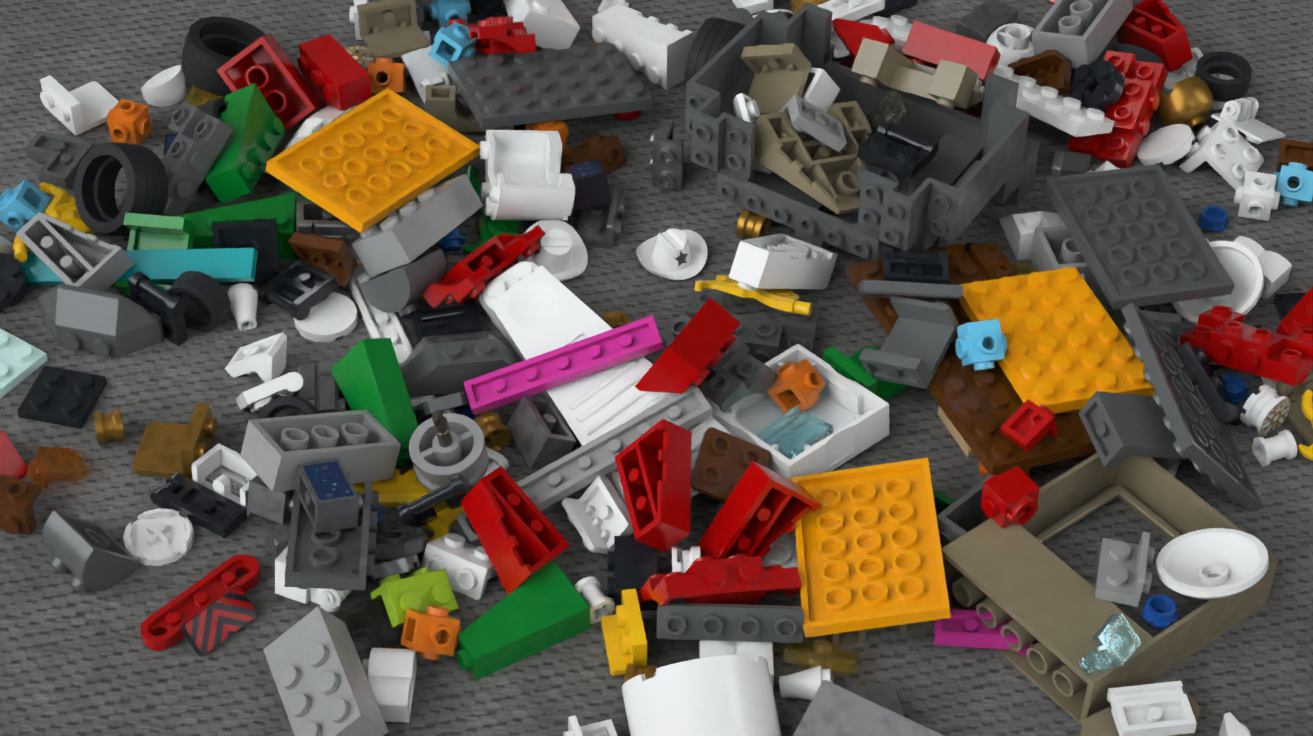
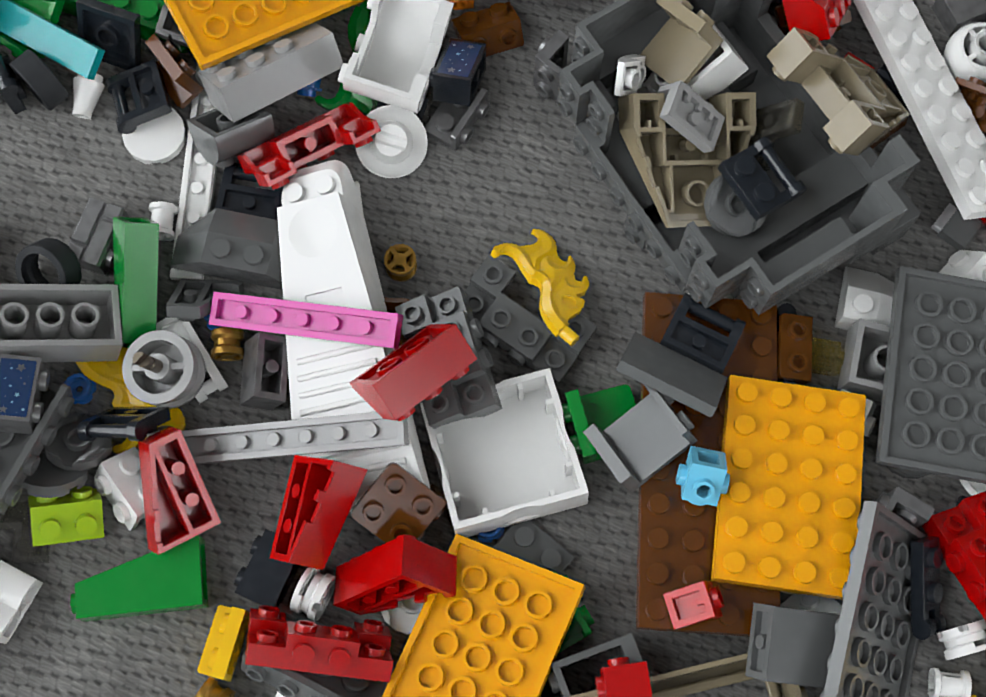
camera: 25 degrees right, 30 degrees up
(262, 394) = (46, 218): white plate -> none
(263, 357) = (67, 170): white slope -> none
(431, 632) = (57, 567): orange brick -> none
(595, 598) = (220, 583): white bush -> none
(599, 516) = (264, 491): white bracket -> none
(673, 254) = (503, 186): white hat -> none
(752, 225) = (596, 189): pearl gold wheel -> none
(781, 263) = (581, 263): white wedge -> none
(795, 431) = (488, 477): clear light blue plate -> none
(796, 386) = (522, 420): orange brick -> none
(930, 44) = (891, 61): wedge -> none
(1236, 388) = (958, 593): blue plate -> none

